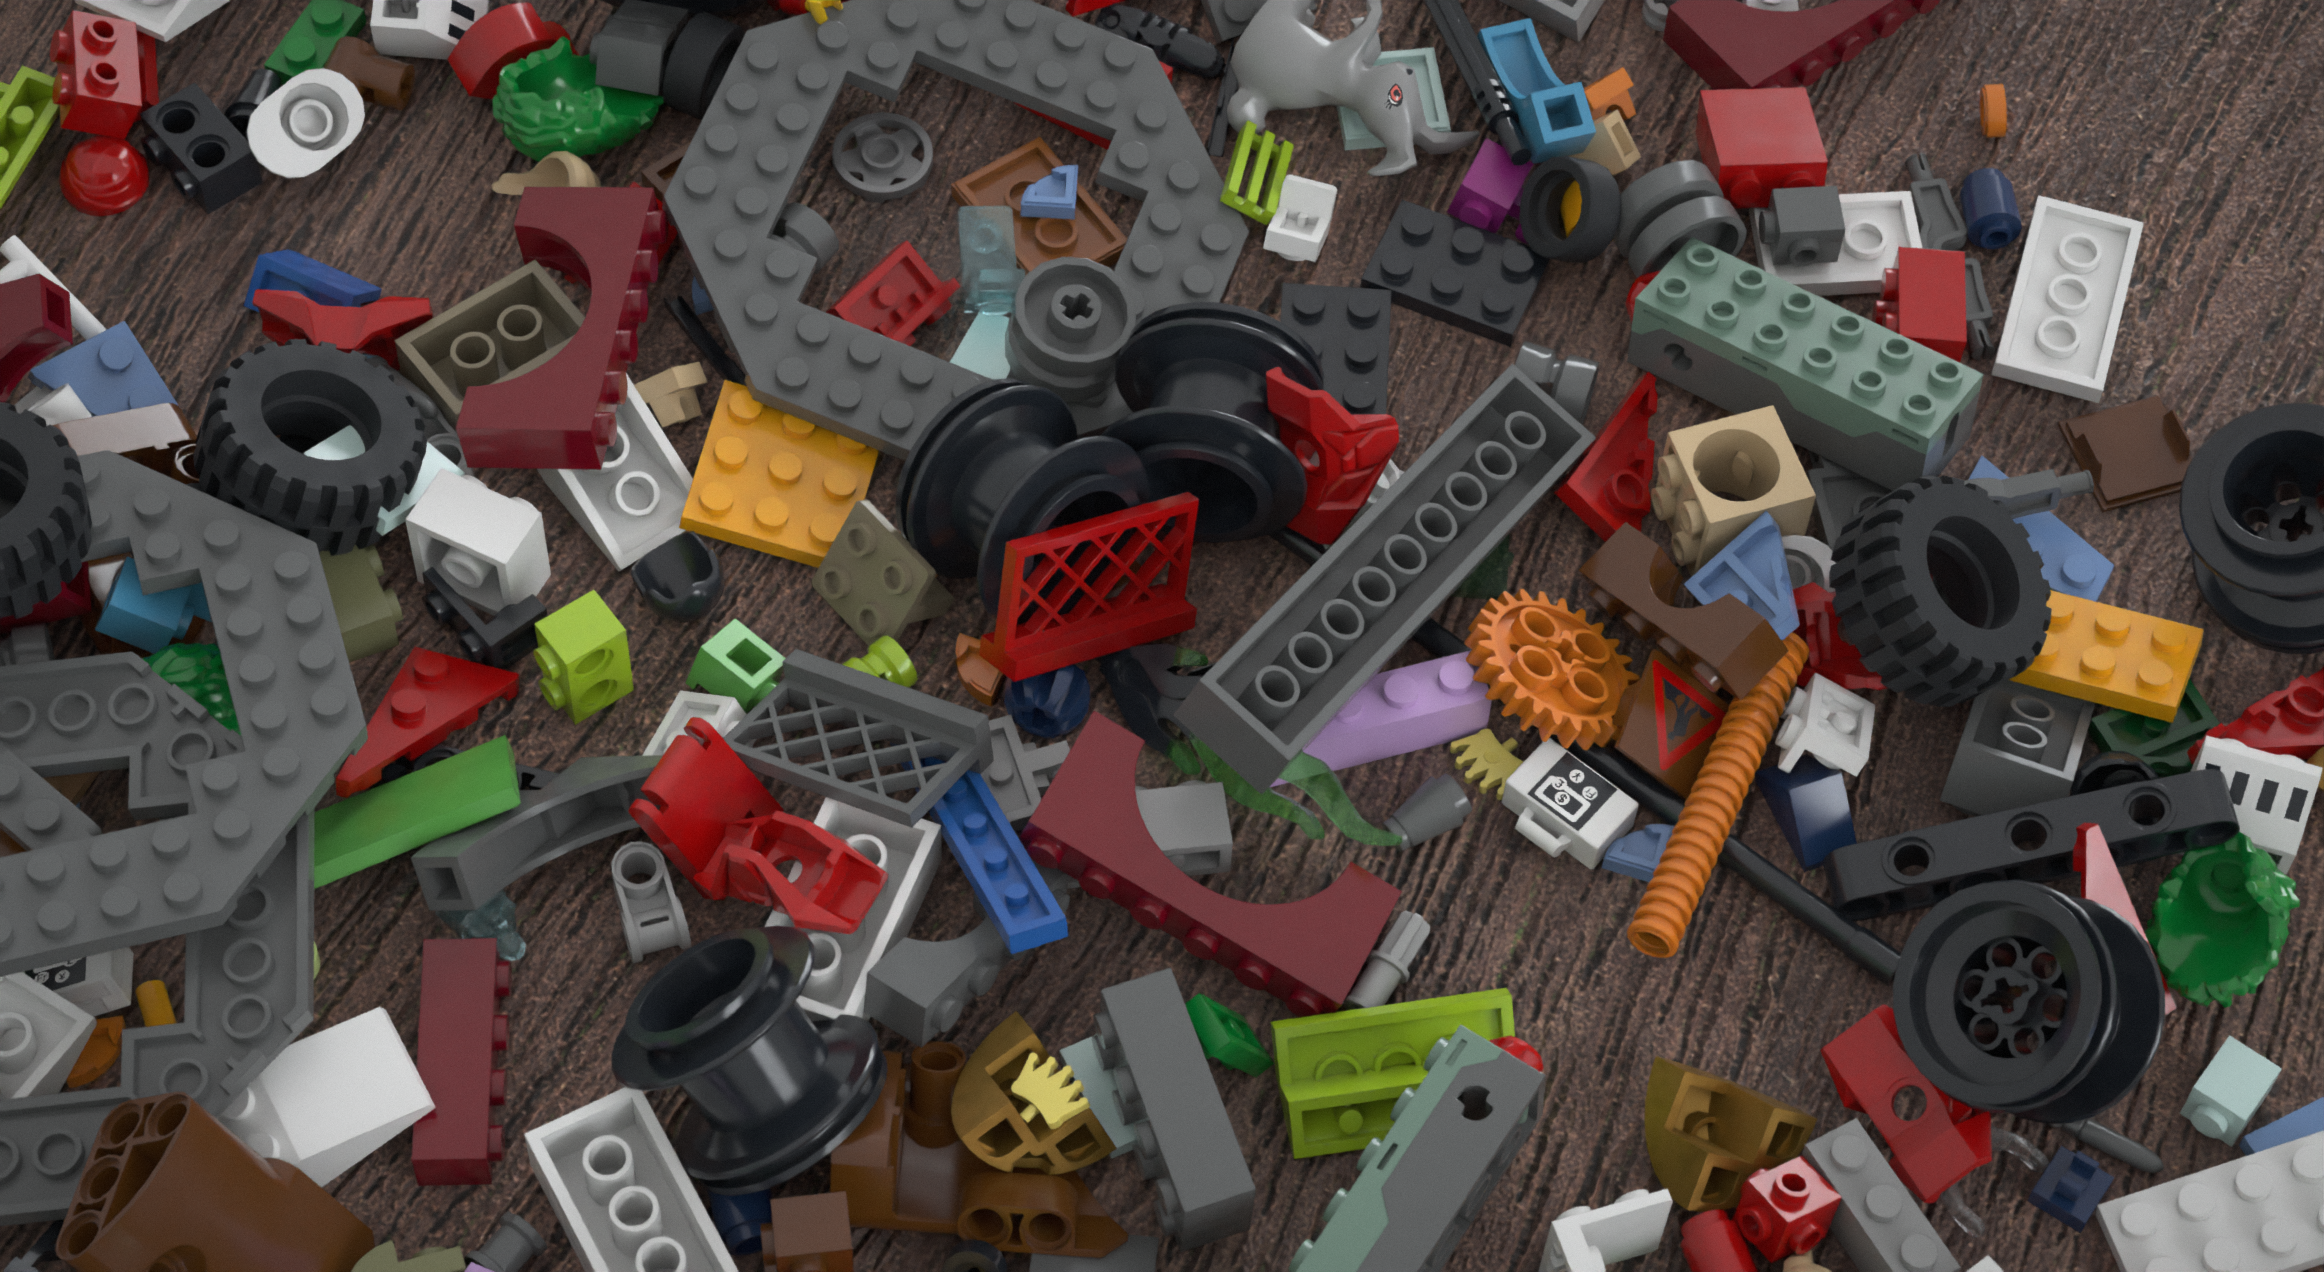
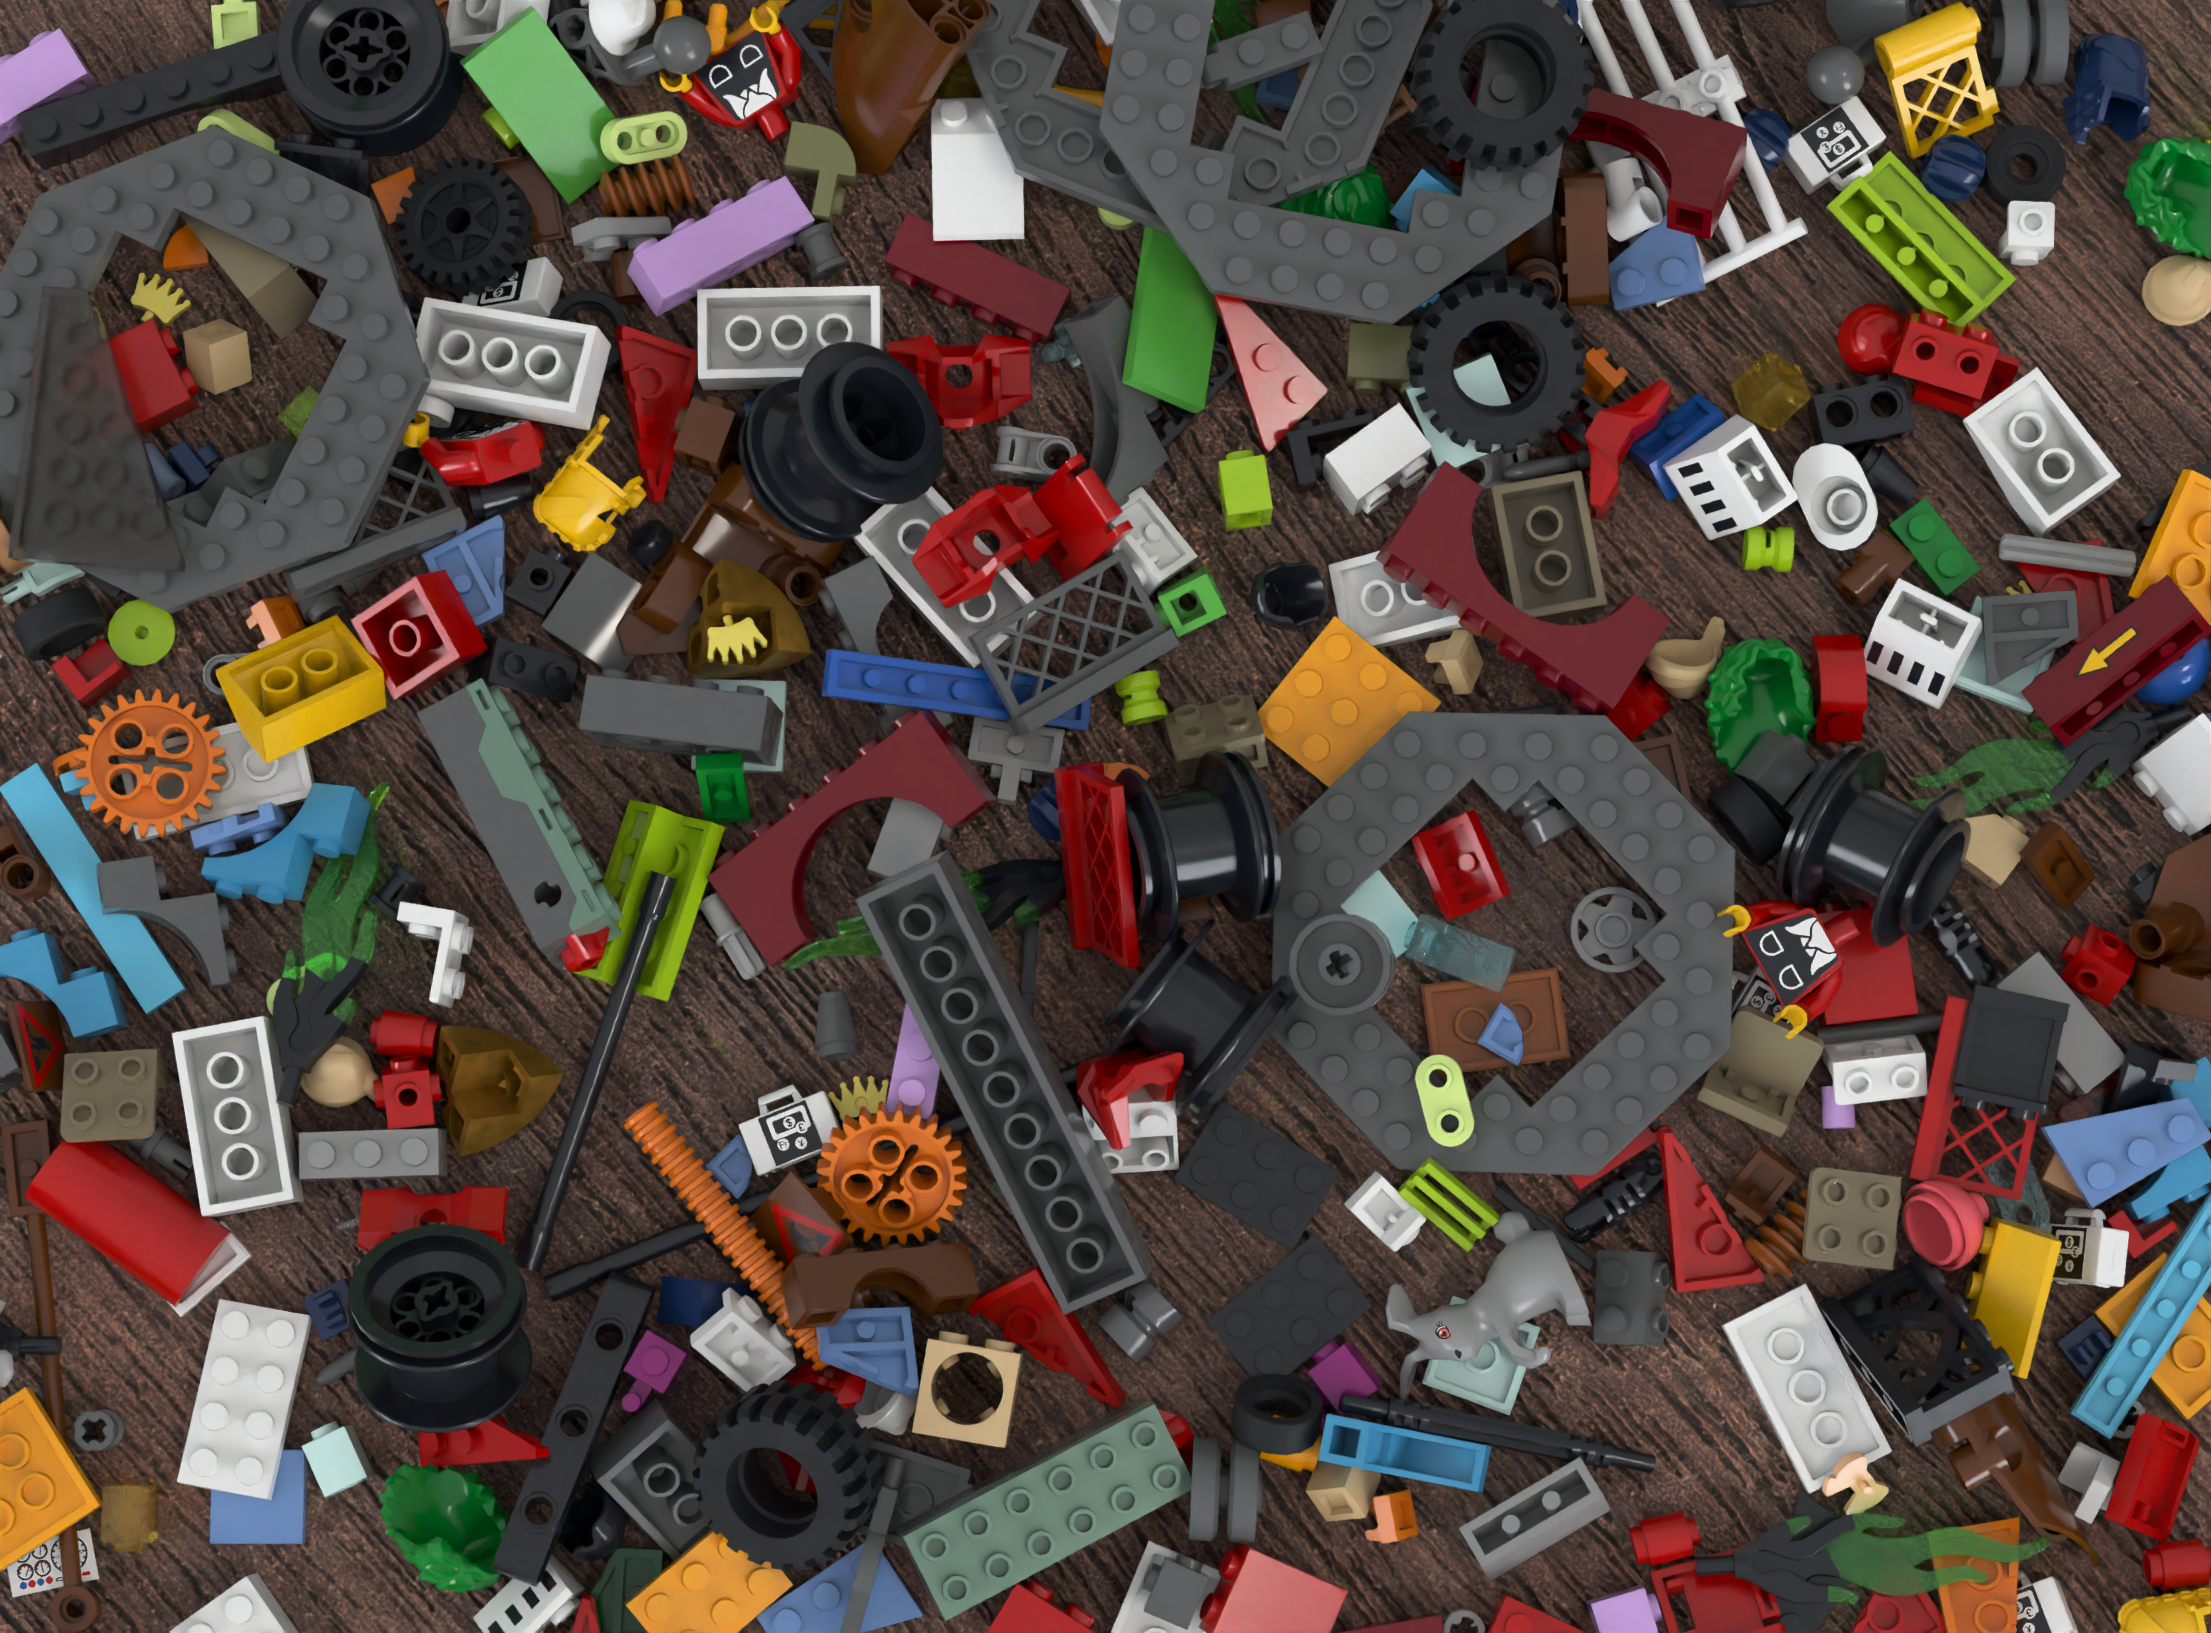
camera: 125 degrees right, 25 degrees up
(210, 237) = (1771, 391): none -> clear yellow panel
(330, 217) = (1730, 479): none -> white slope
(393, 176) = (1768, 548): none -> lime wheel
(569, 993) = (998, 381): none -> red piece
(1159, 195) = (1445, 1100): none -> yellowish green plate
(1841, 1010) = (540, 1229): none -> black piece
(1909, 803) = (655, 1366): none -> magenta brick

